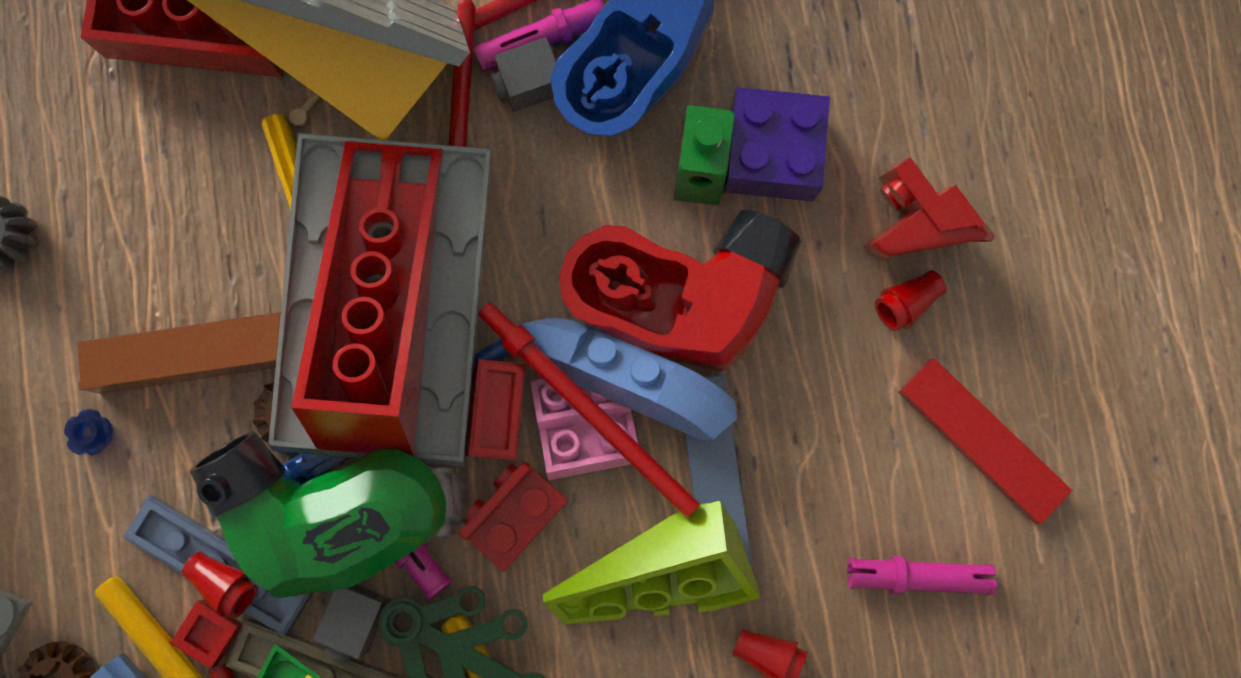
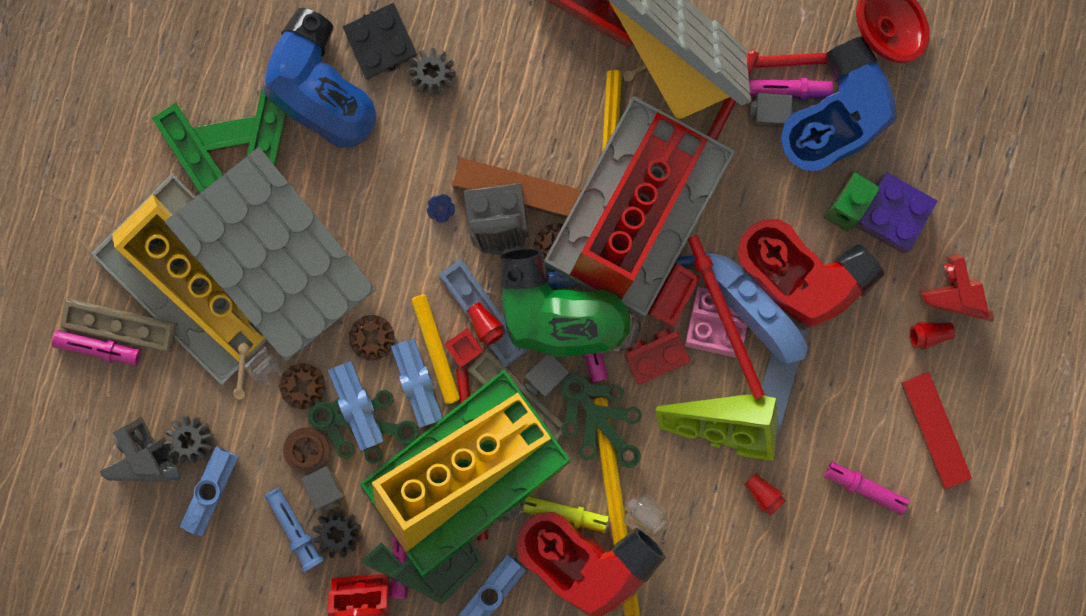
camera: 20 degrees right, 5 degrees up
(170, 410) = (497, 218): none -> dark grey piece

